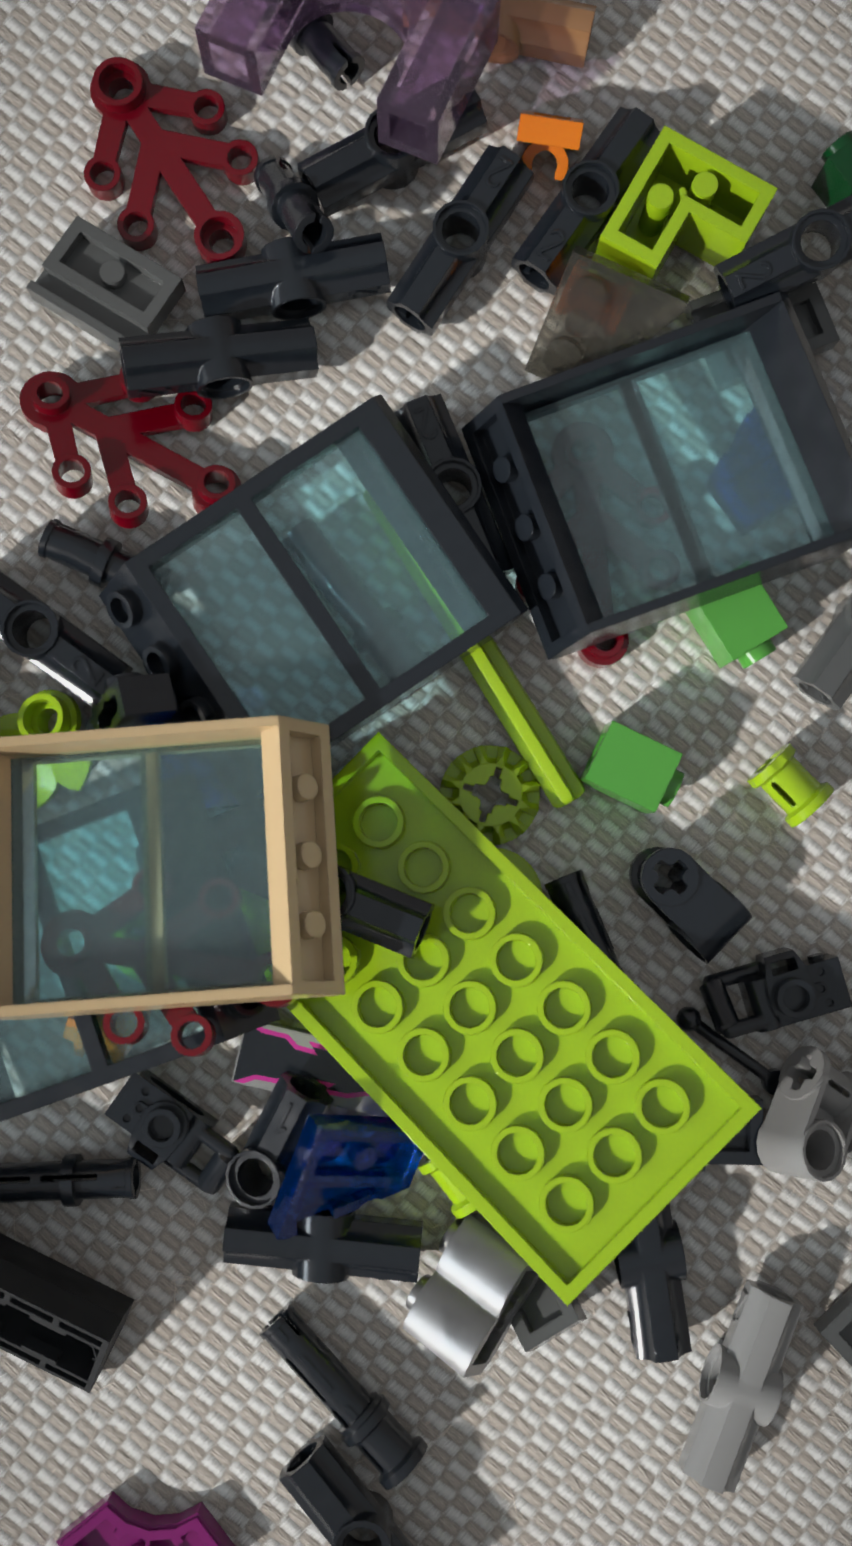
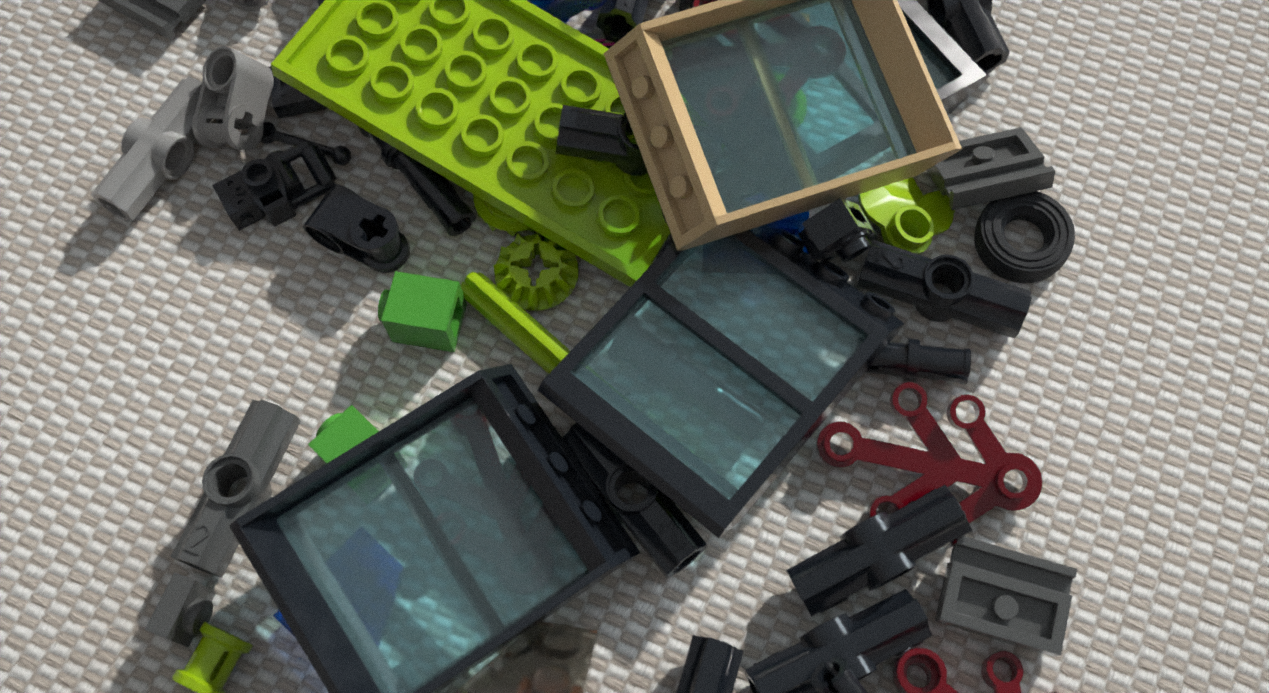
camera: 165 degrees right, 20 degrees down
(790, 785) = (286, 334): lime bush -> none

